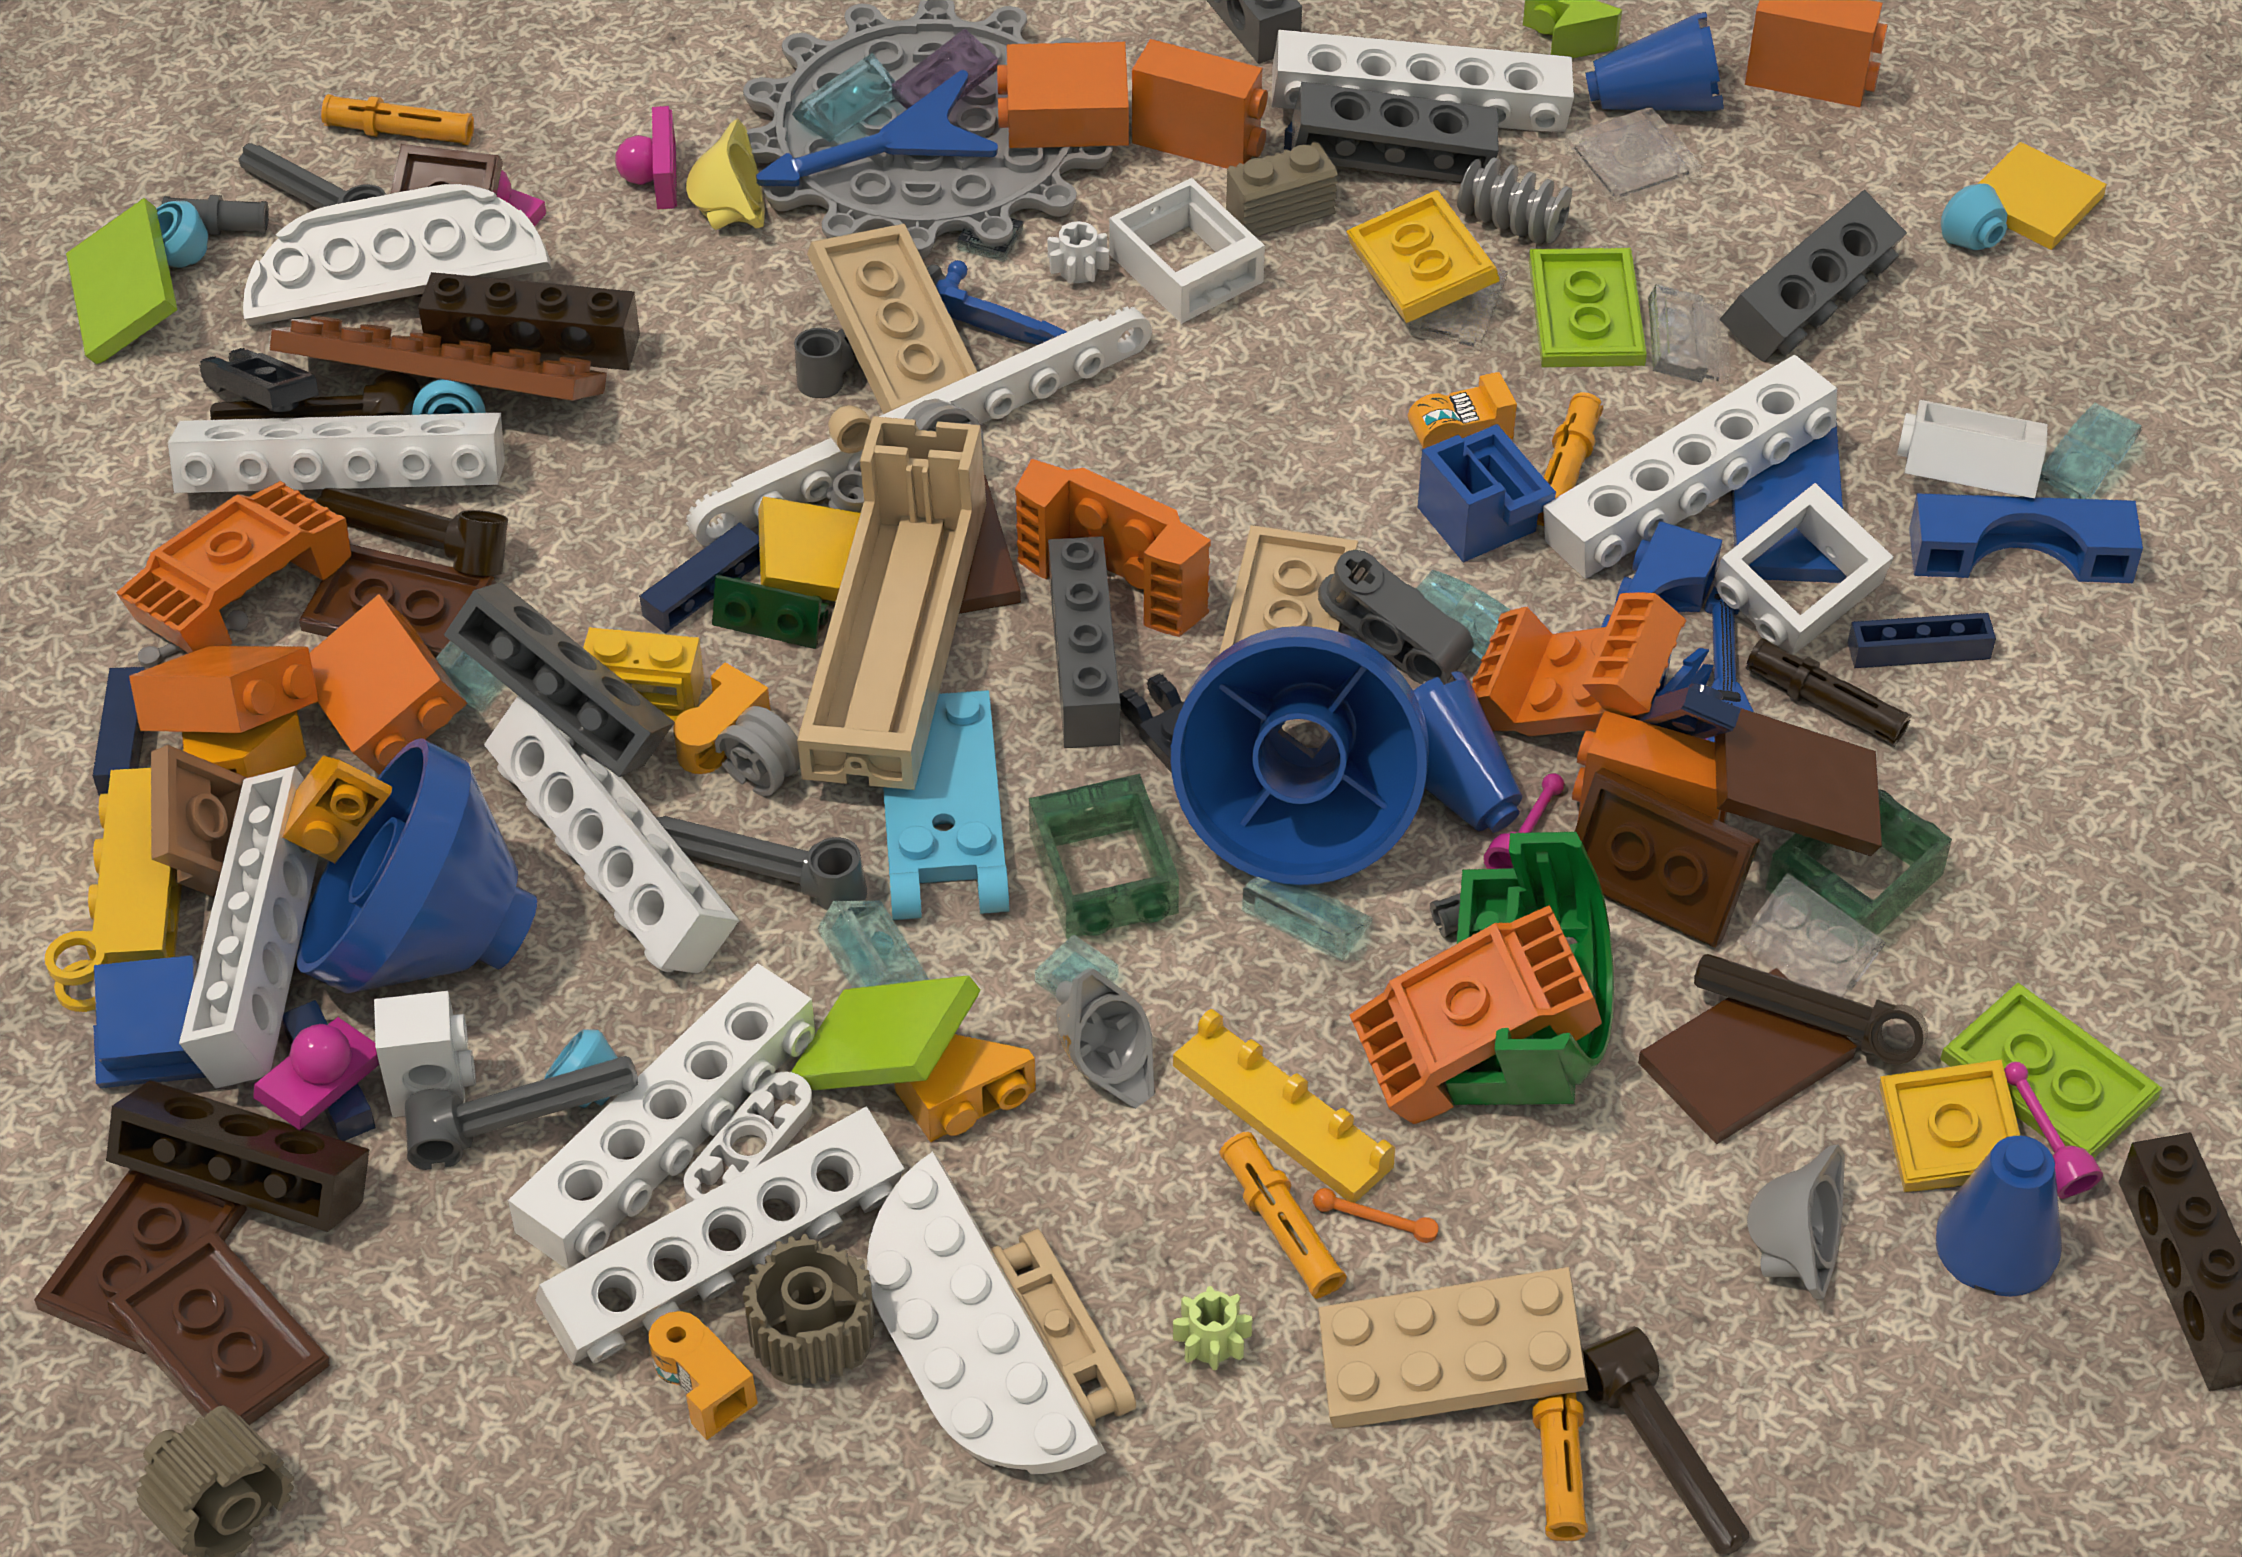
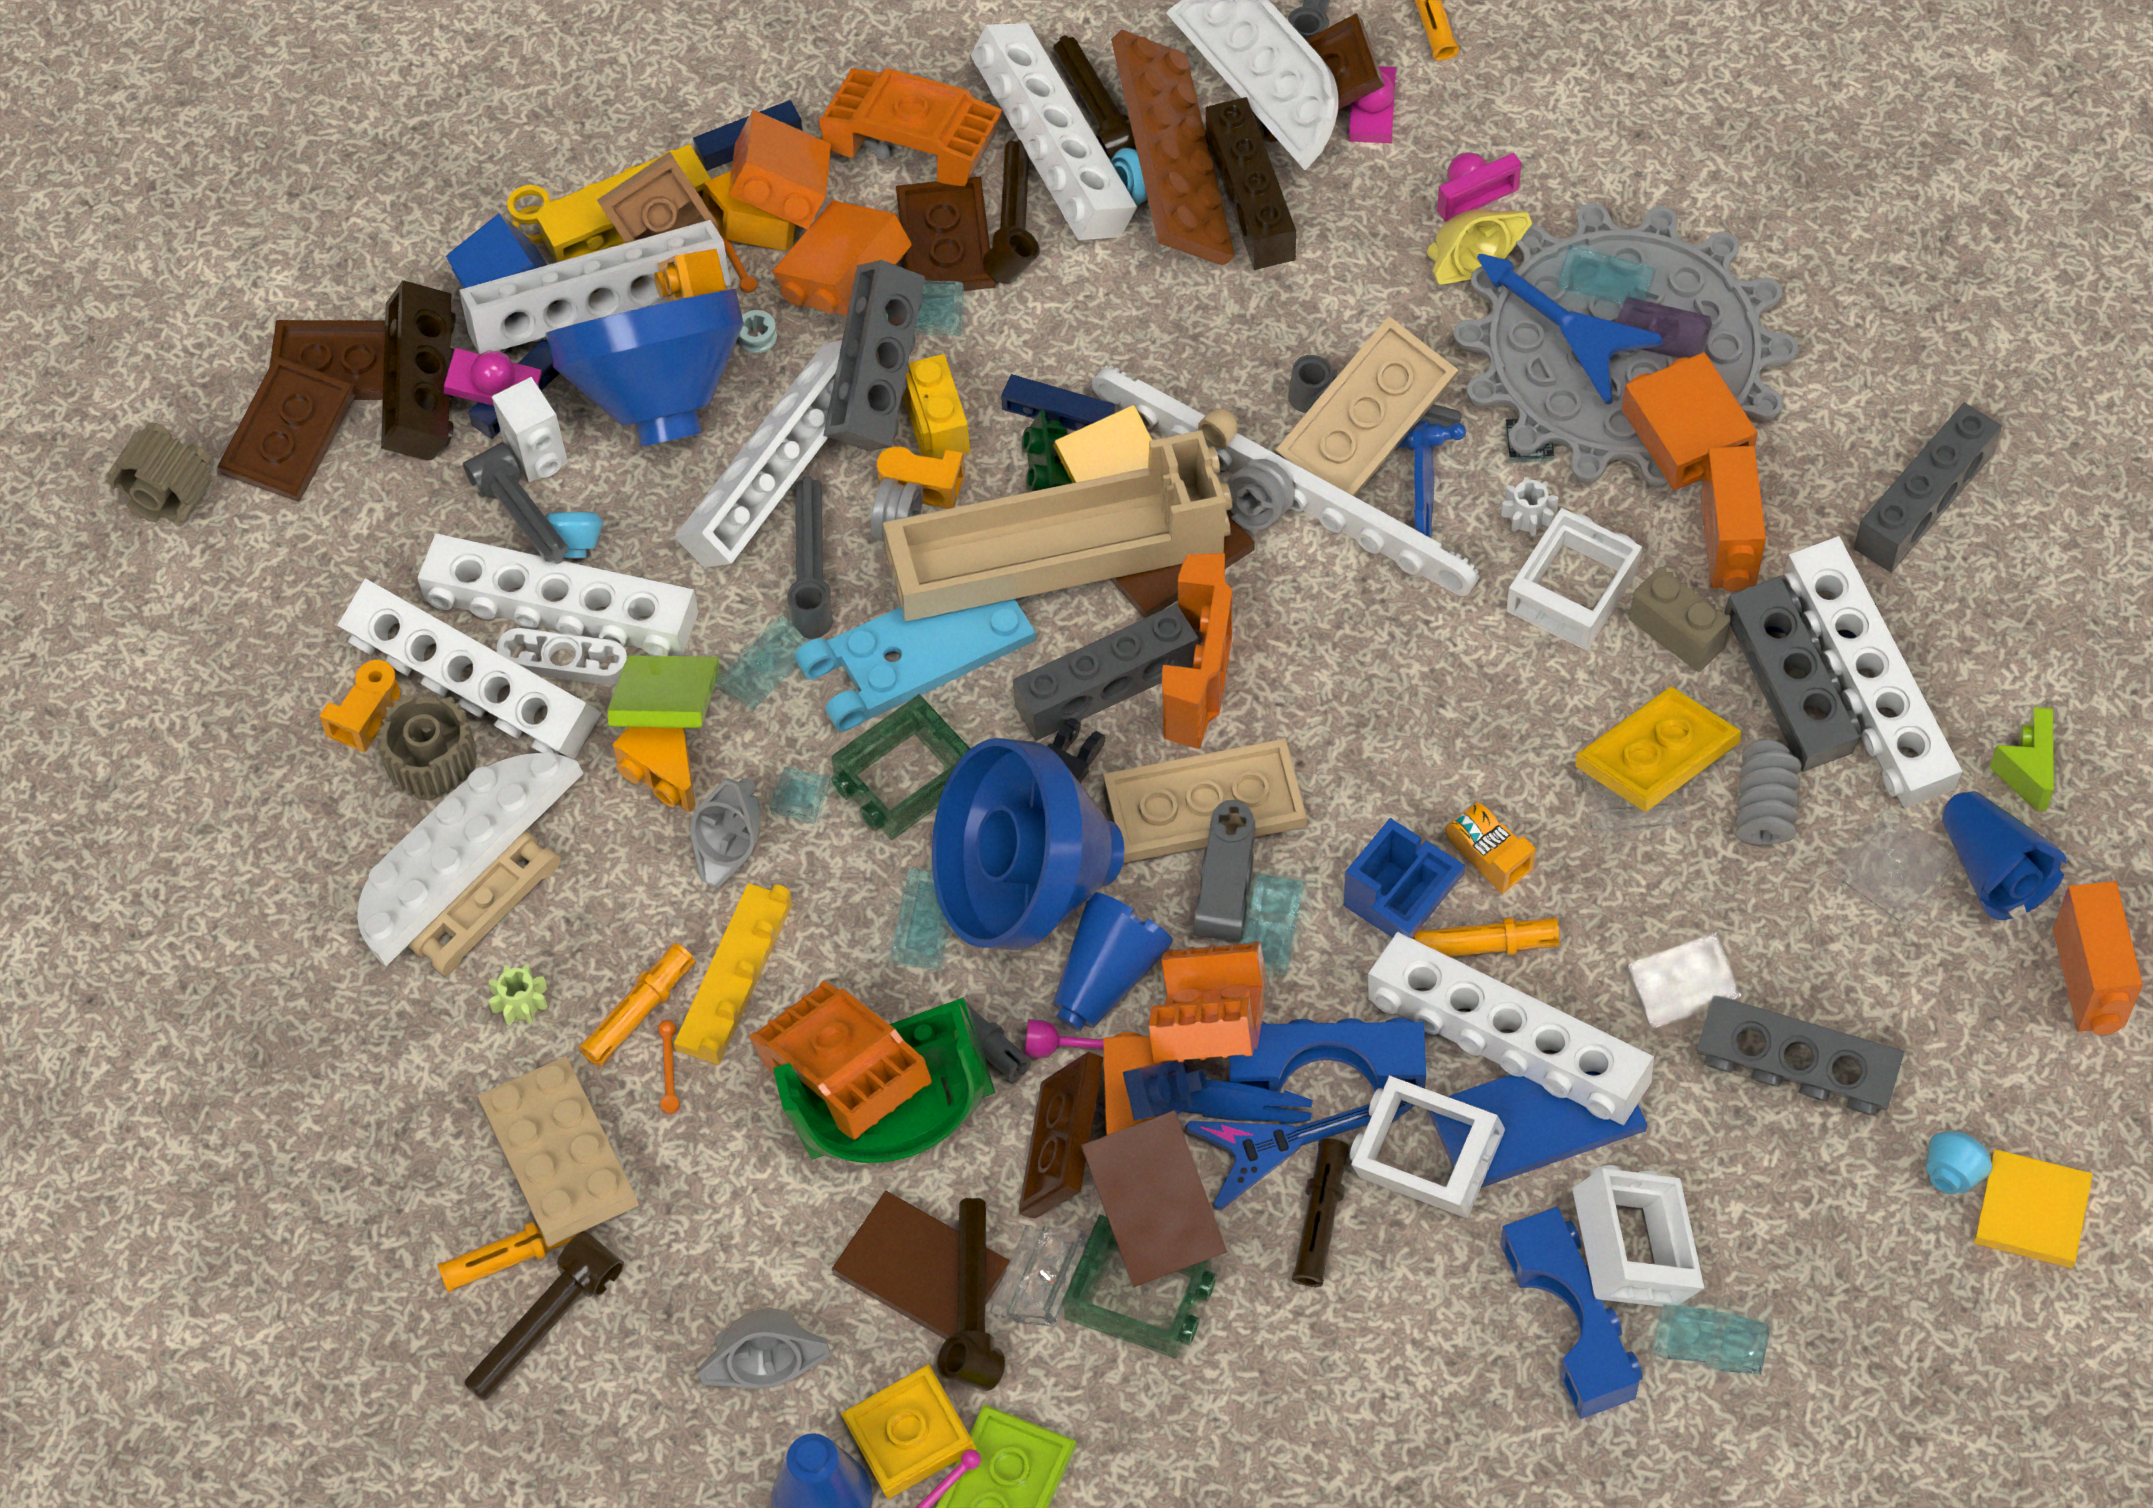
camera: 70 degrees right, 10 degrees up
(259, 379) = (1090, 51): black hinge -> none
(1587, 307) = (1684, 894): lime tile -> none
(1921, 640) = (1415, 1267): dark blue piece -> none

